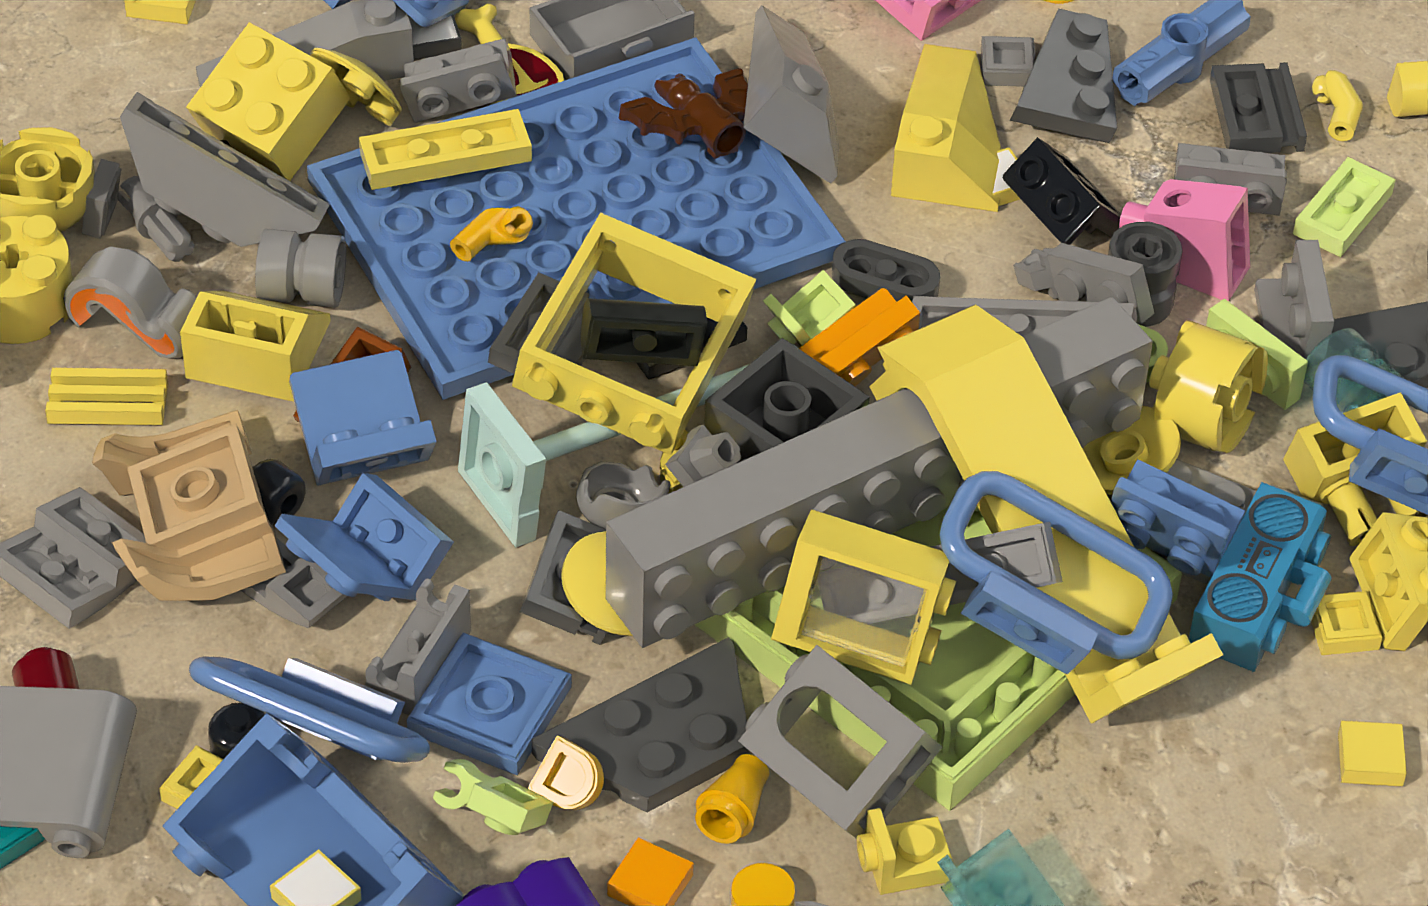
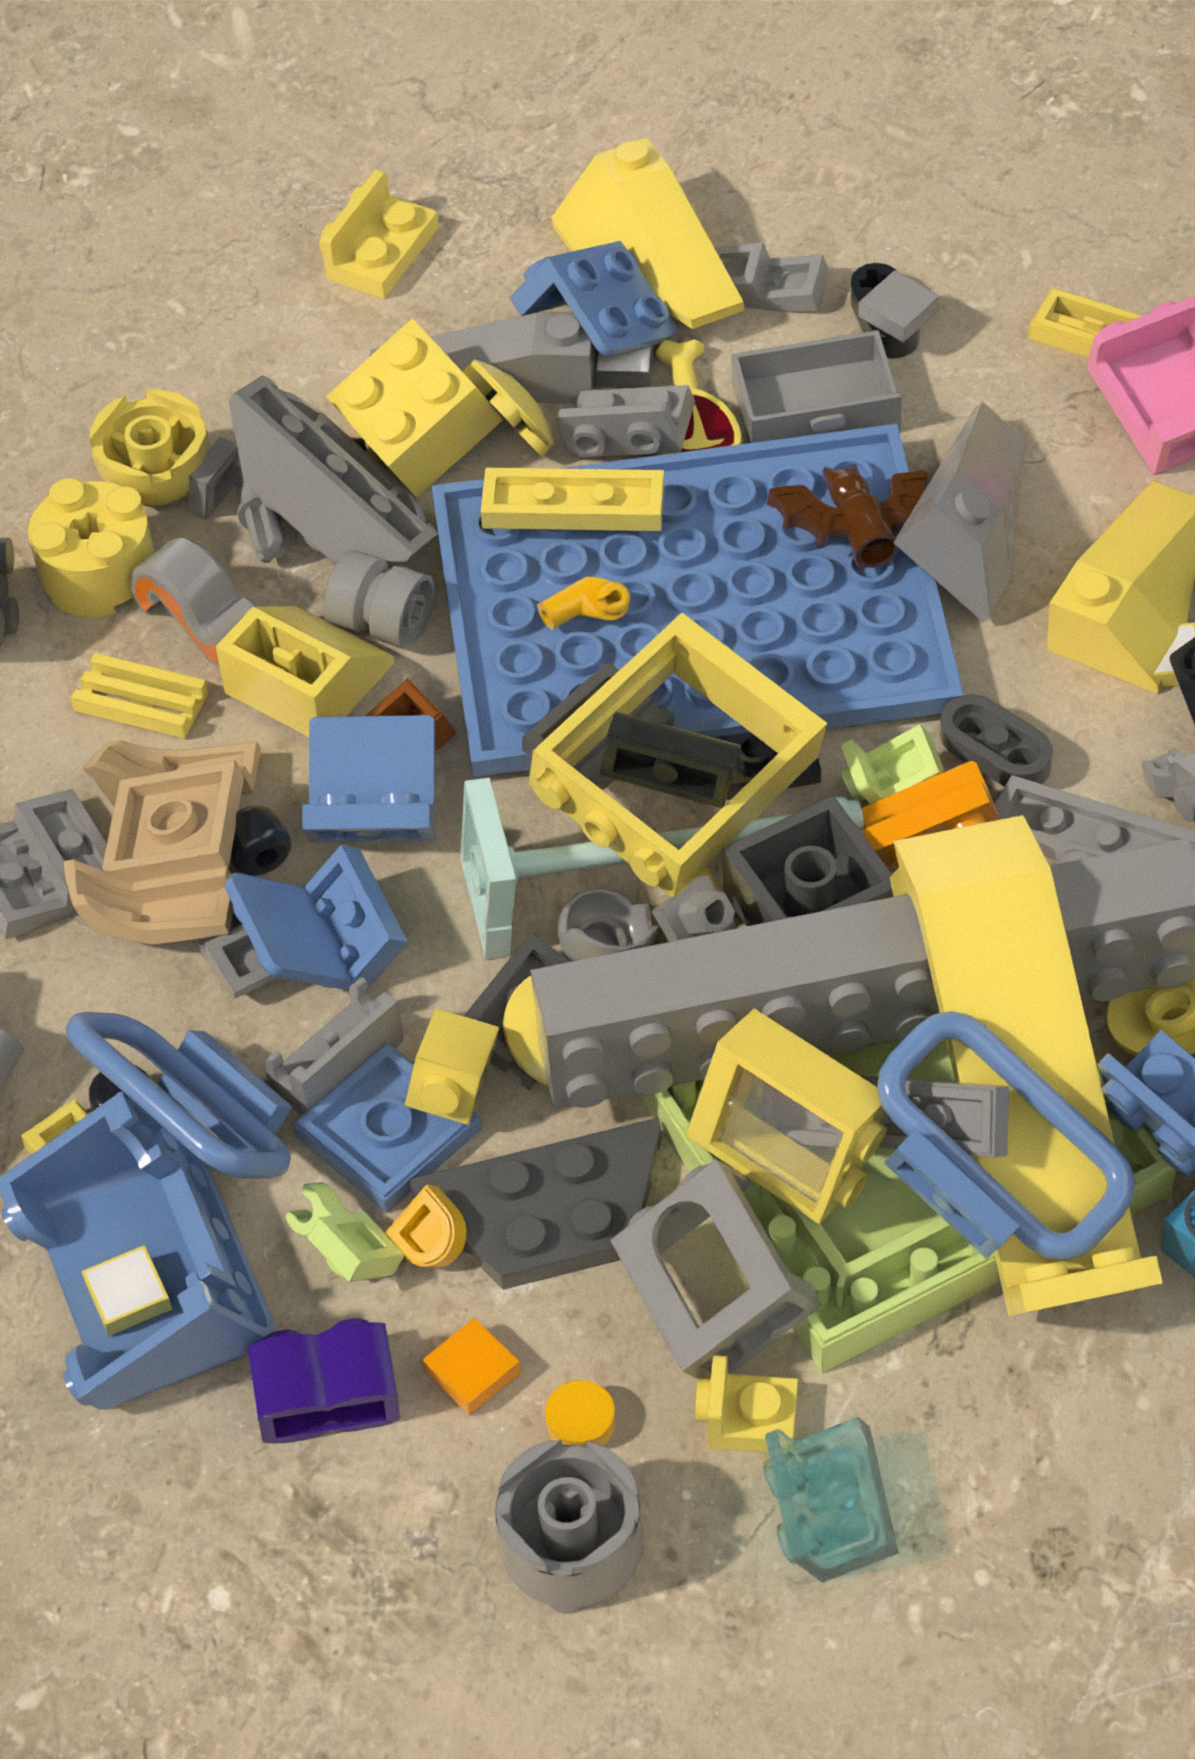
camera: 25 degrees right, 5 degrees up
(537, 633) = (451, 1066): none -> light yellow brick
(731, 802) = (586, 1304): yellow cone -> none

